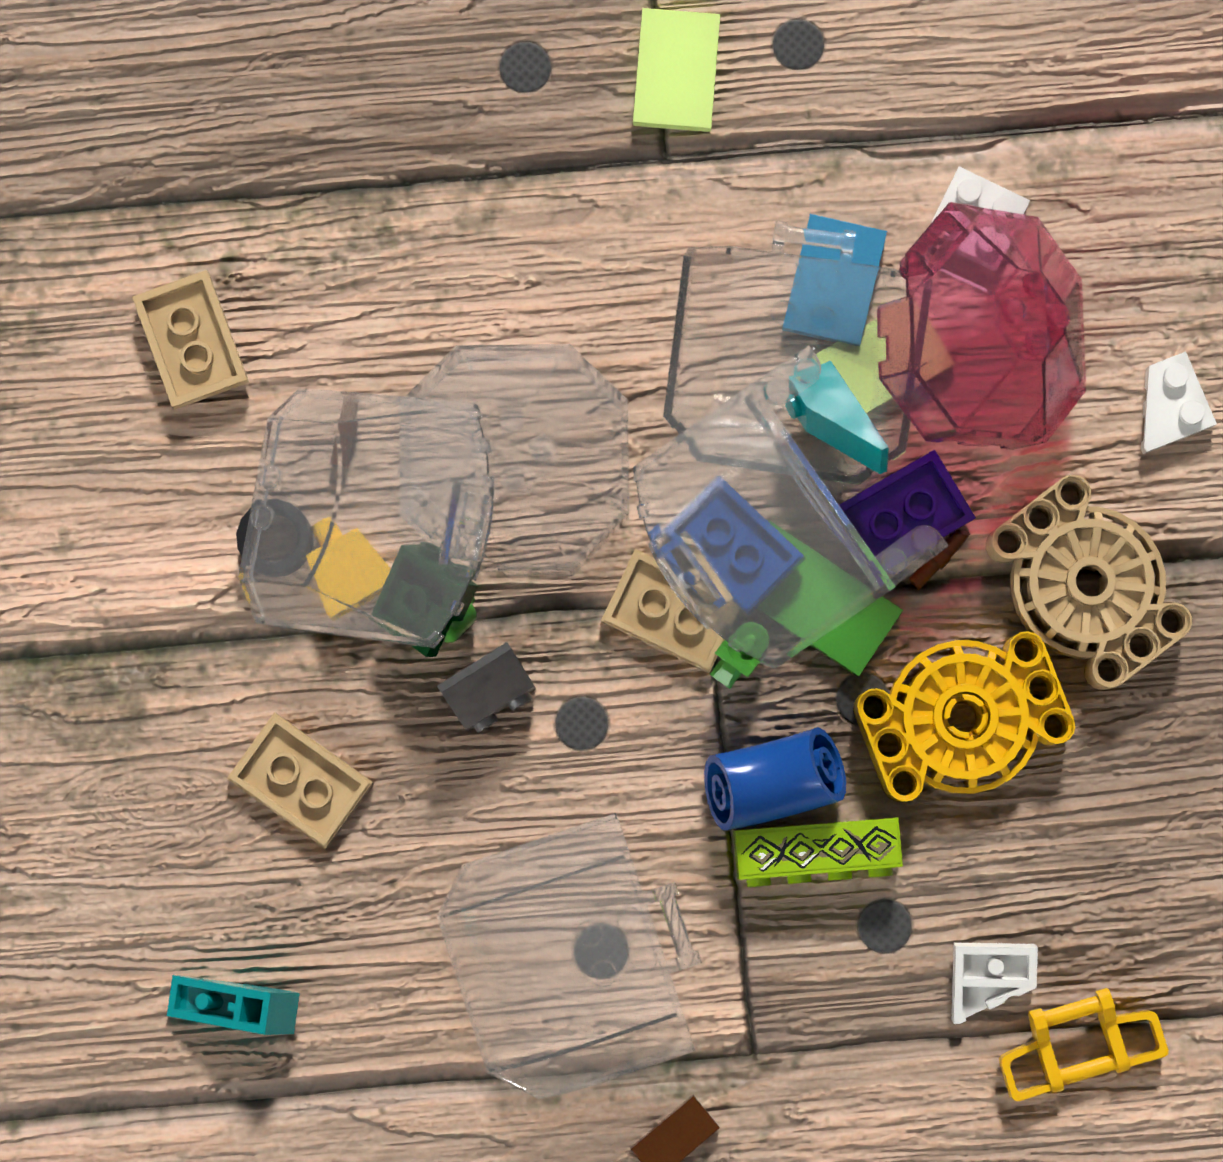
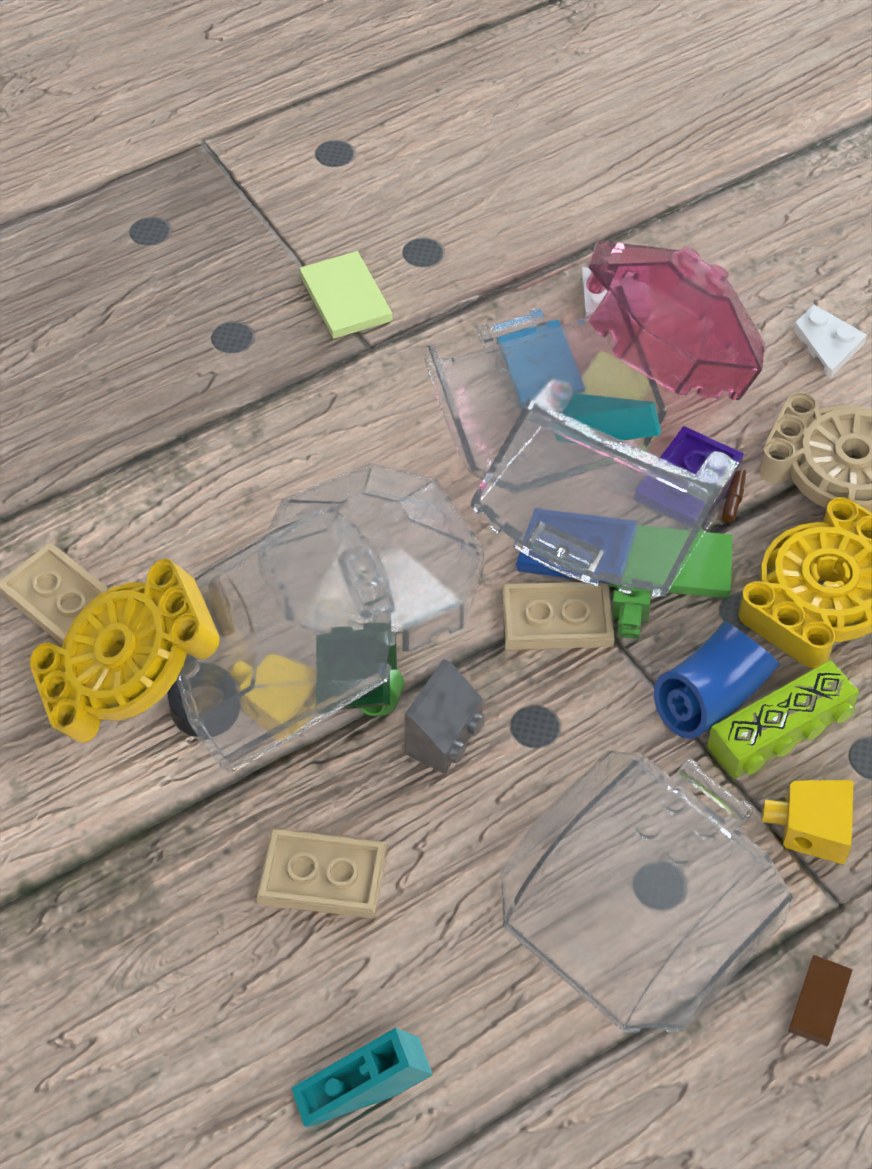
camera: 25 degrees left, 30 degrees down
(250, 455) = (123, 651): none -> yellow piece
(780, 966) = (815, 818): none -> yellow torso

